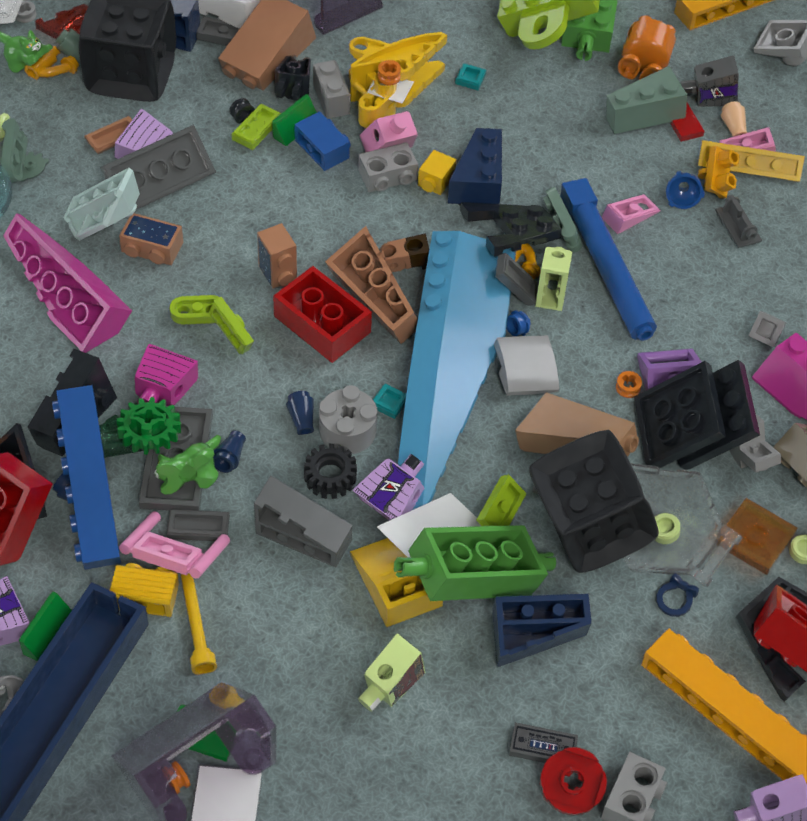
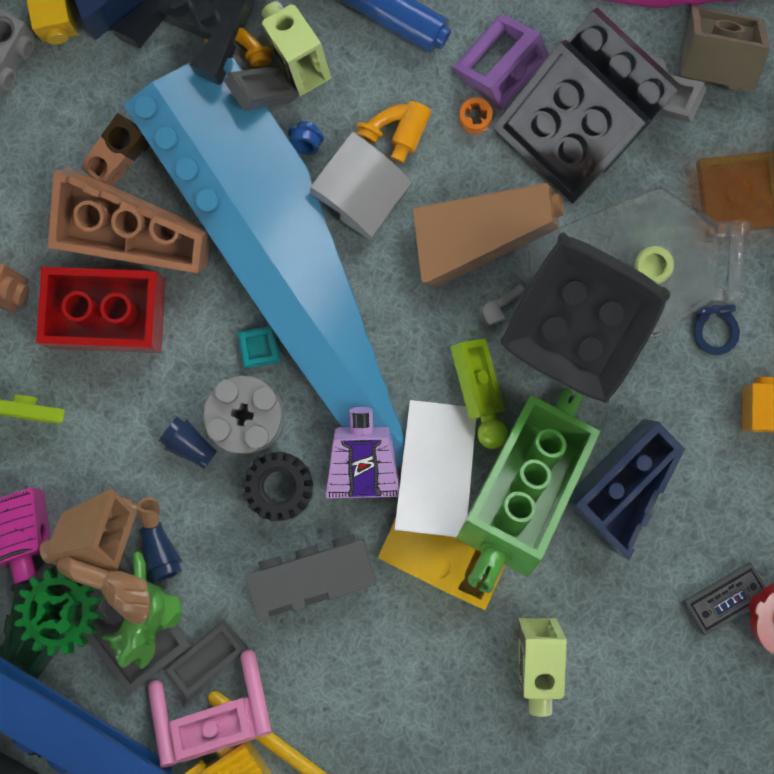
camera: 30 degrees left, 30 degrees up
(204, 401) = (91, 545): none -> medium nougat torso
(585, 361) = (412, 119): none -> light orange plant

